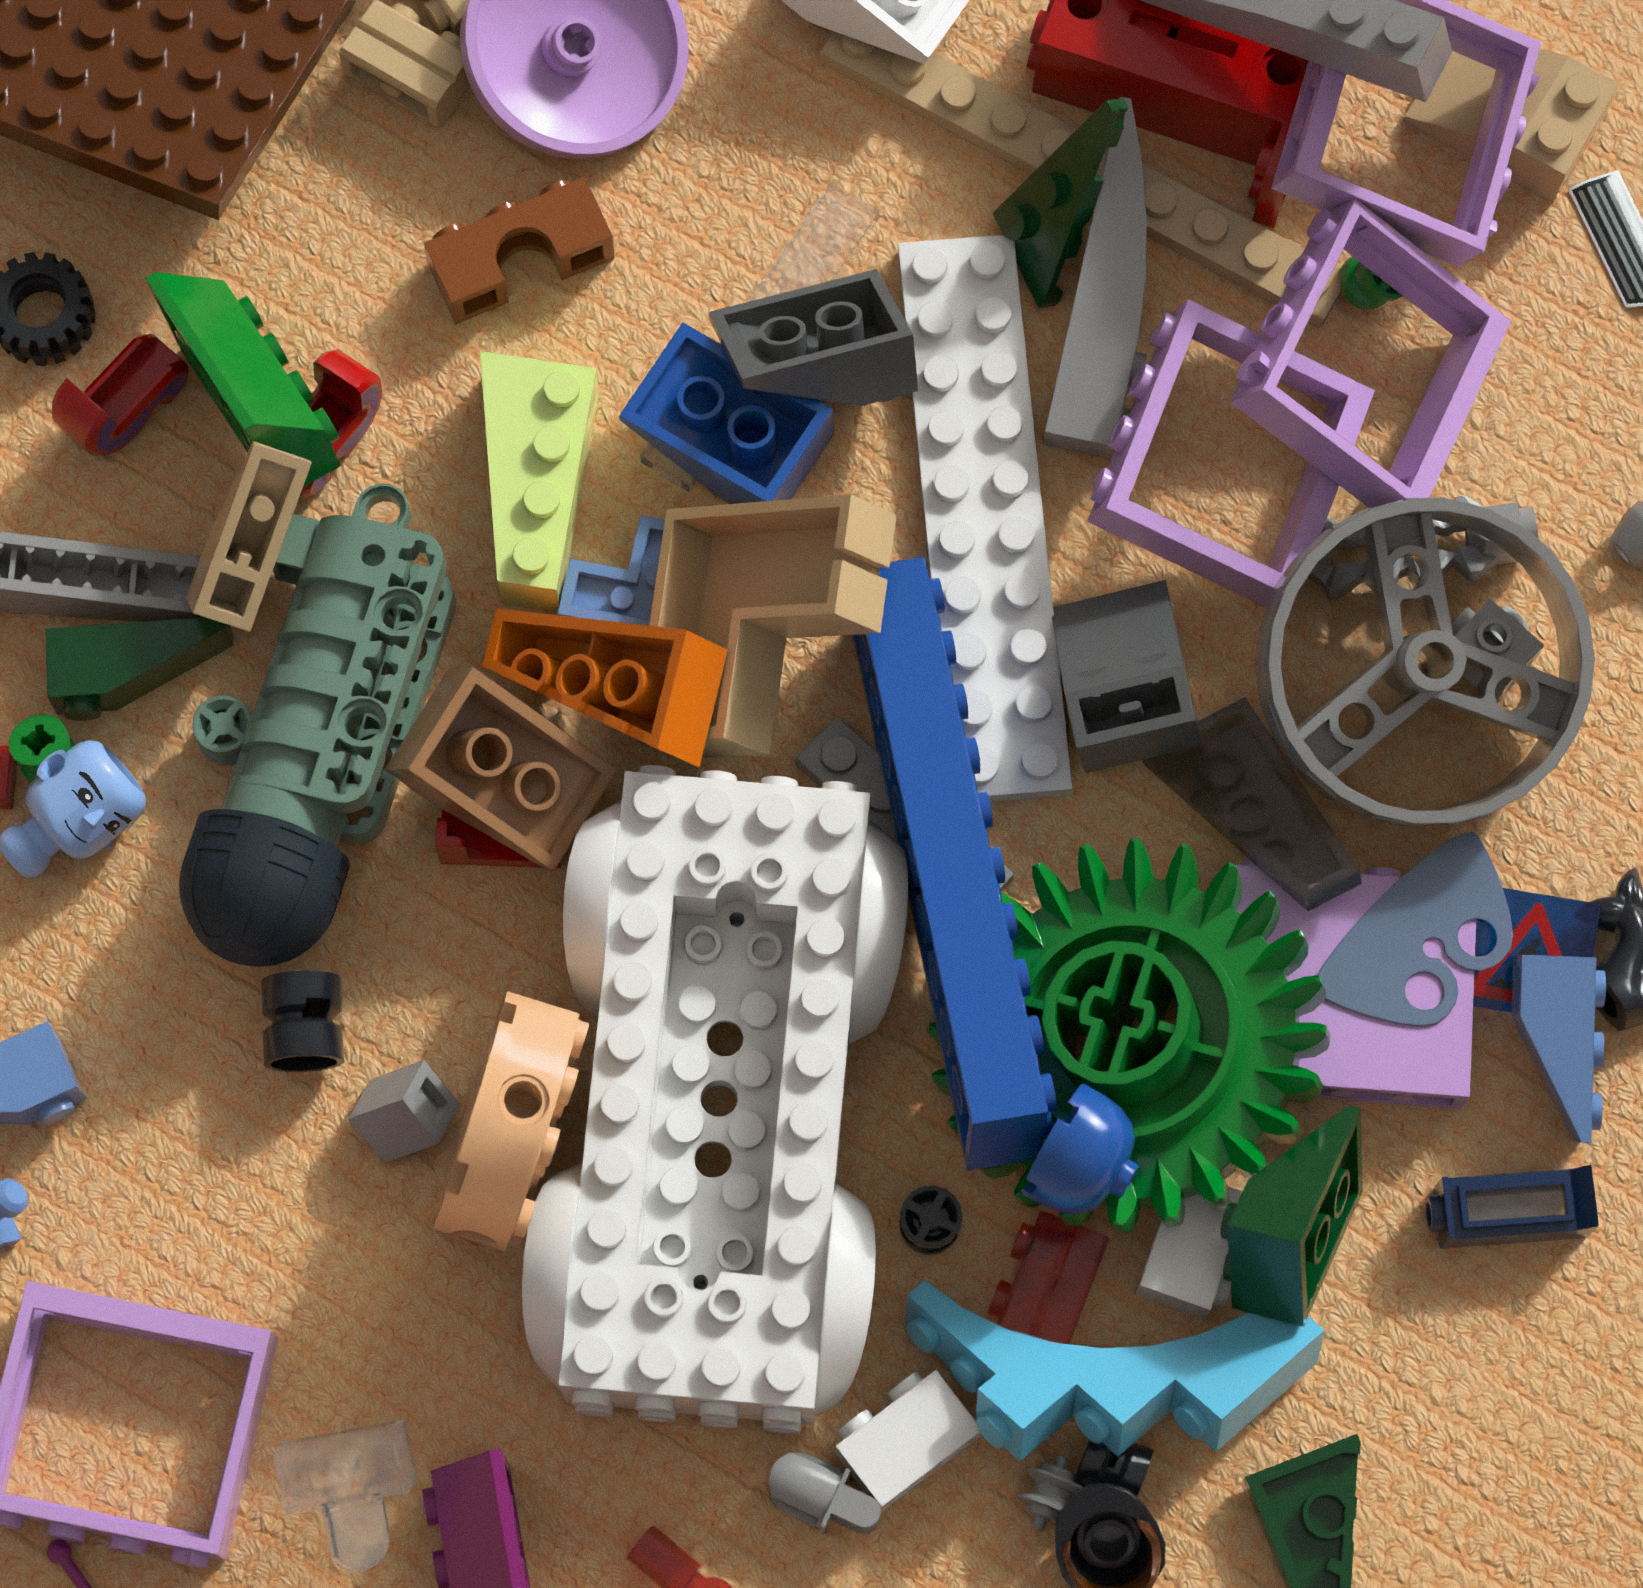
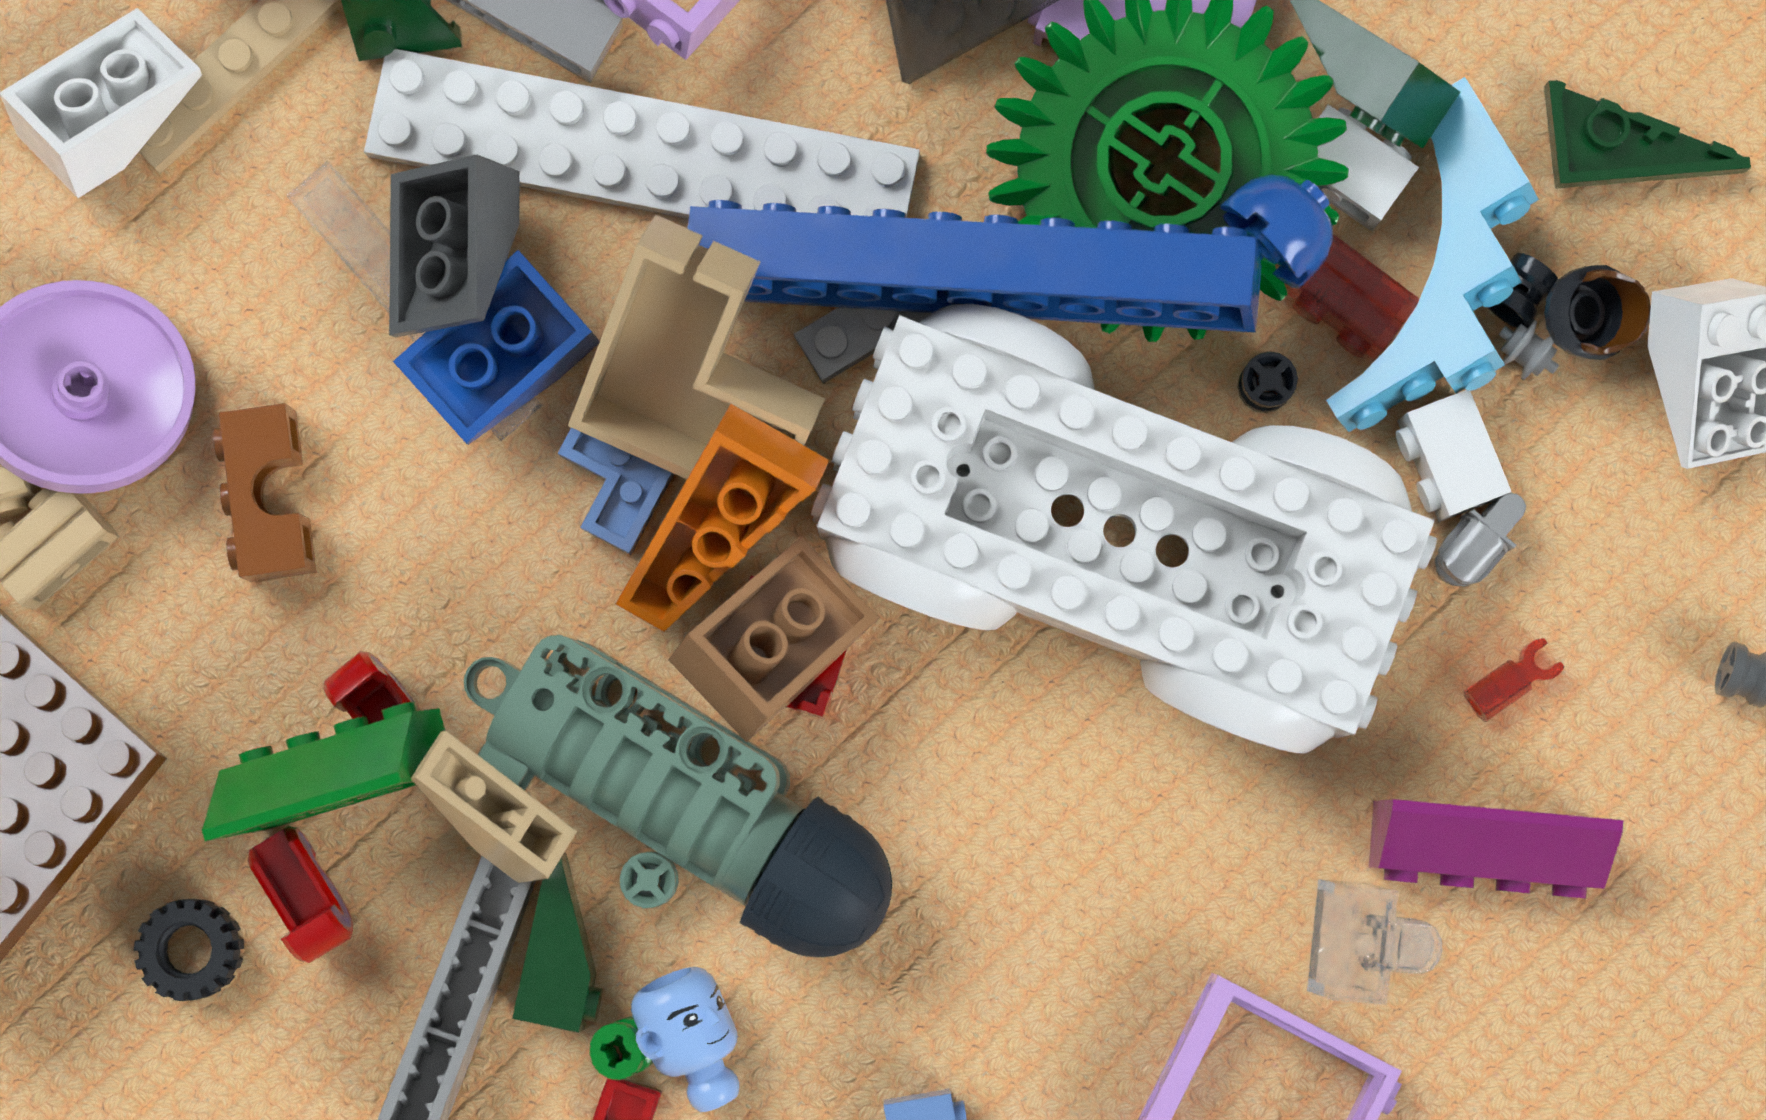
camera: 70 degrees left, 10 degrees up
(302, 1021) = (943, 878): black wheel -> none
(404, 1111) = (1046, 809): light grey panel -> none
(510, 1122) = (1105, 715): light nougat brick -> none
(537, 462) = (476, 532): yellowish green wedge -> none
(1125, 677) = (833, 69): dark grey slope -> none

